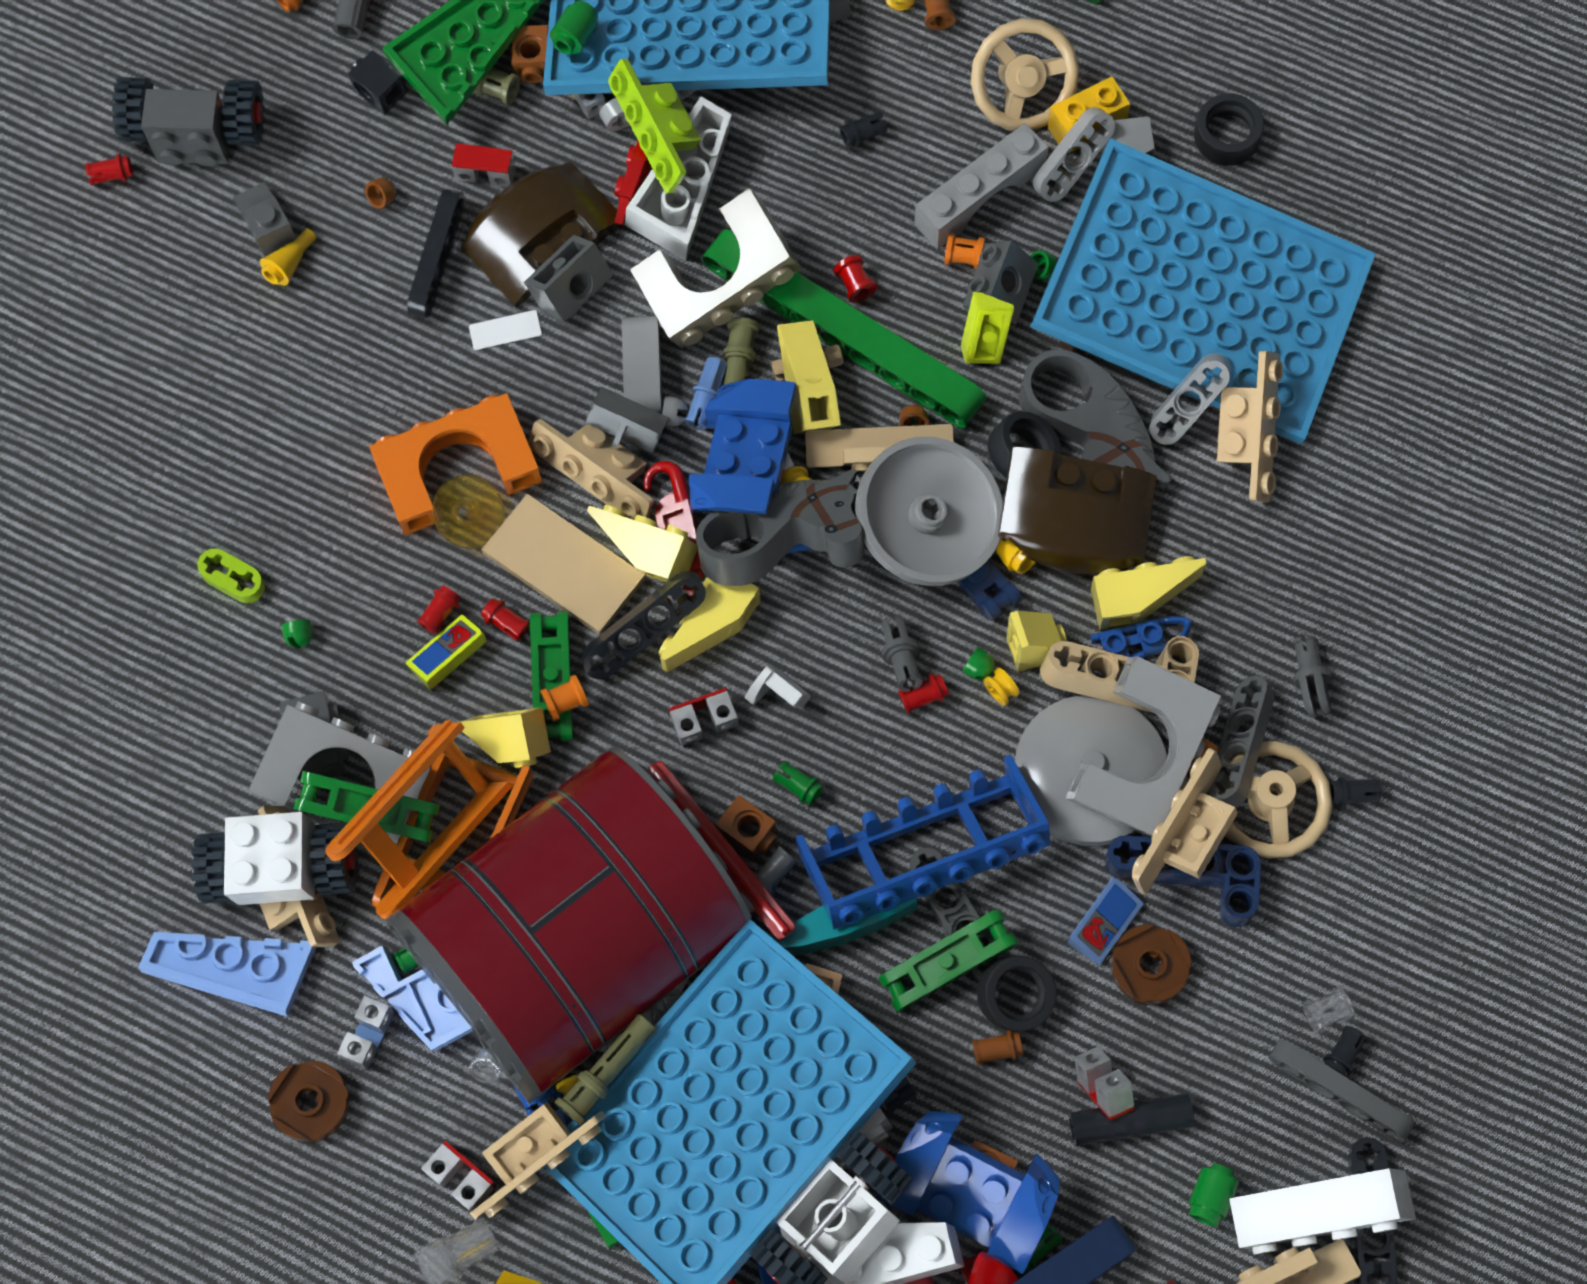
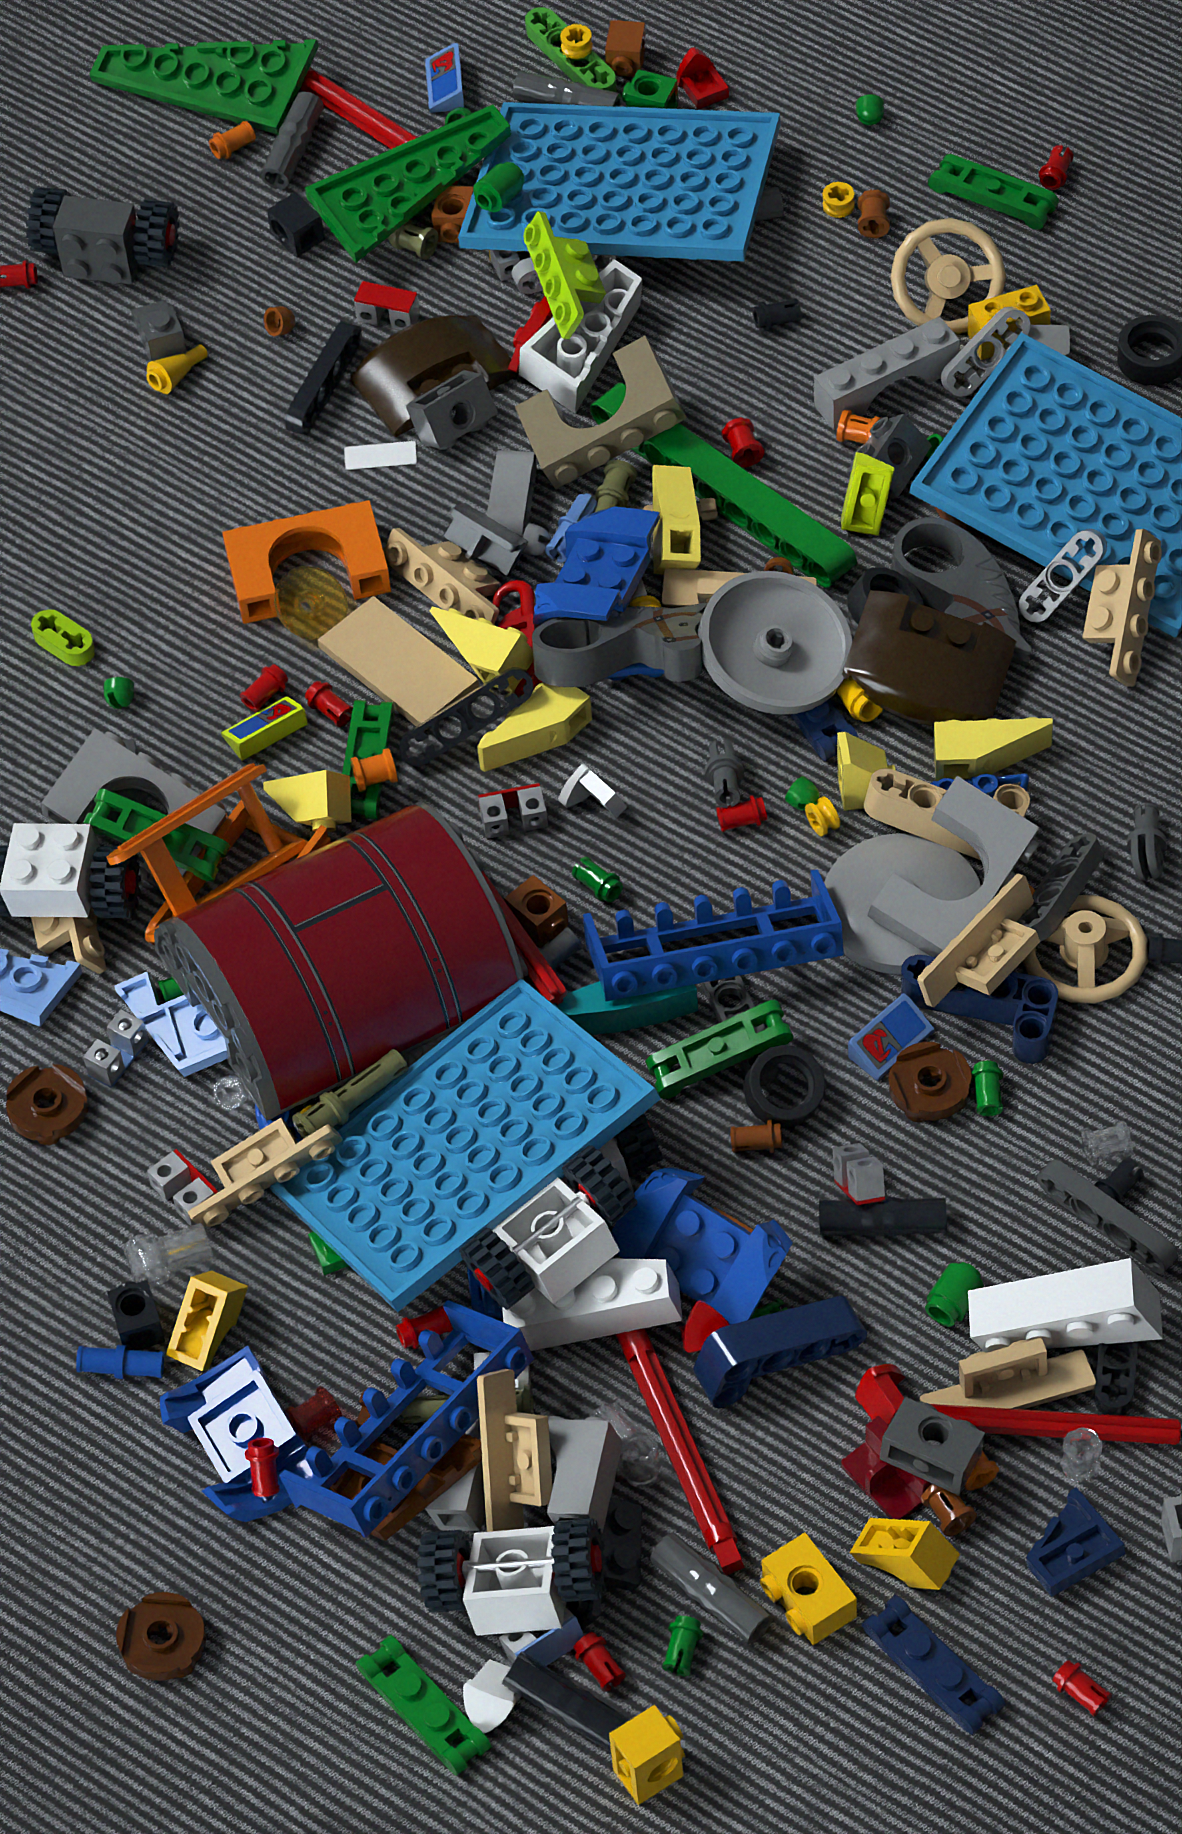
camera: 10 degrees right, 15 degrees down
(1206, 964) = (987, 1085): none -> green pin

